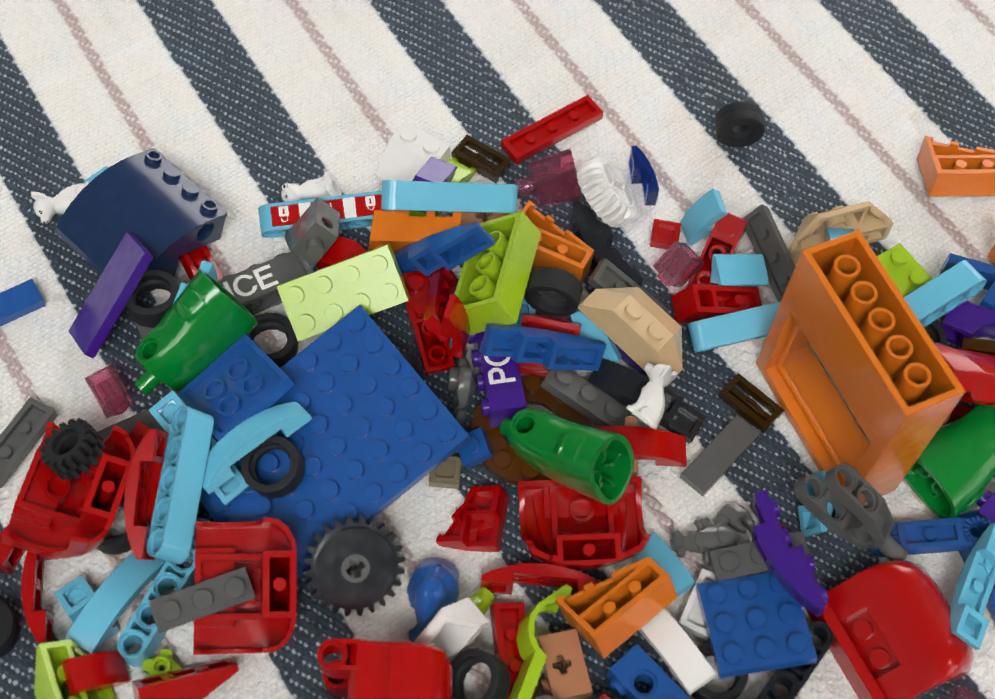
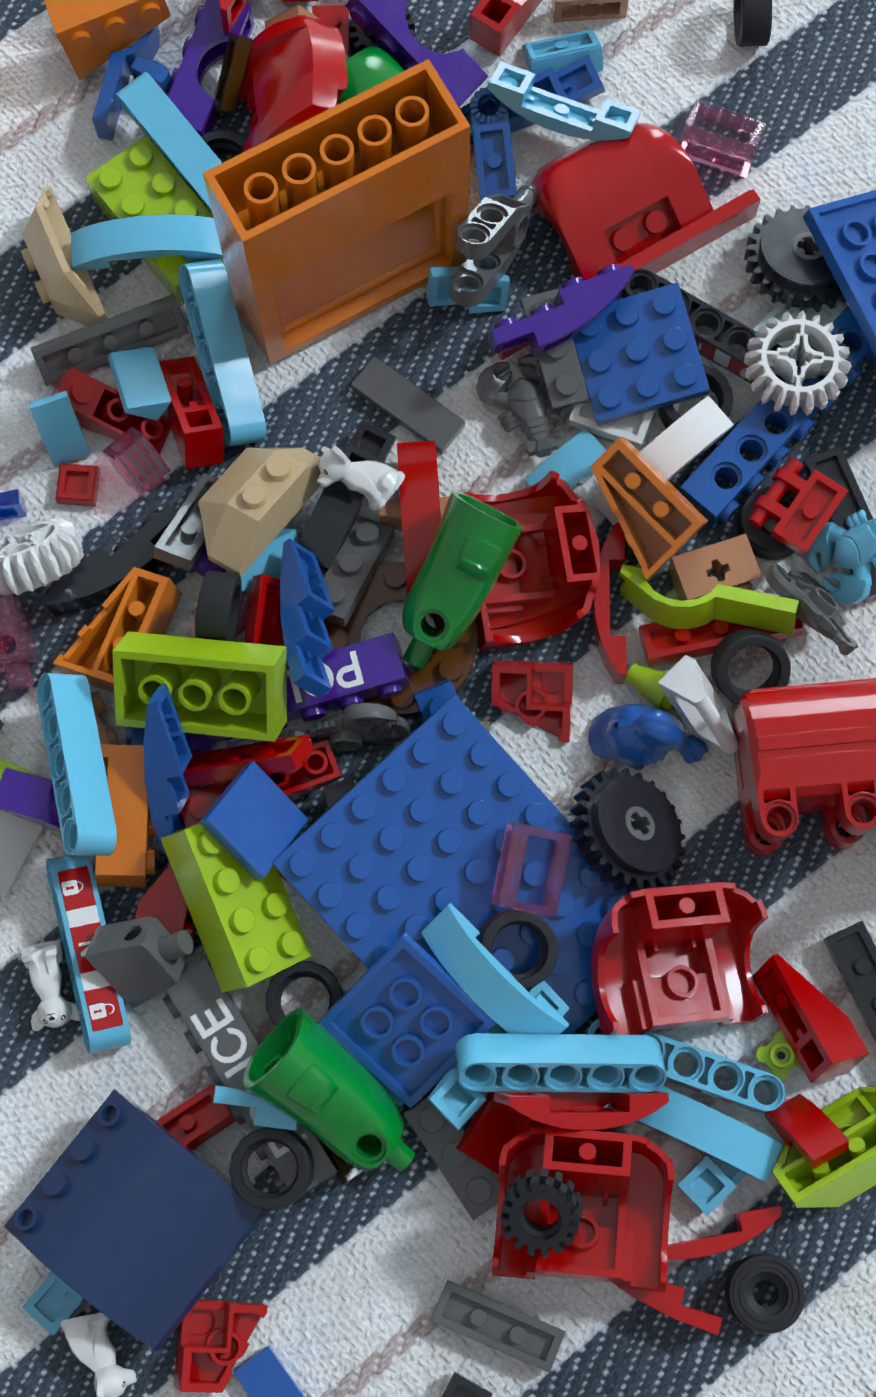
camera: 90 degrees left, 15 degrees up
(55, 269) = (212, 1341): none -> red slope
(109, 391) = (410, 1209): clear pink brick -> none
(110, 295) = (274, 1229): dark purple tile -> none
(201, 600) = (708, 1008): dark grey plate -> none
(333, 463) = (512, 863): none -> tile
(392, 296) = (254, 820): none -> blue tile
(456, 325) = (296, 728): red slope -> none
(748, 407) = (310, 394): dark brown tile -> none

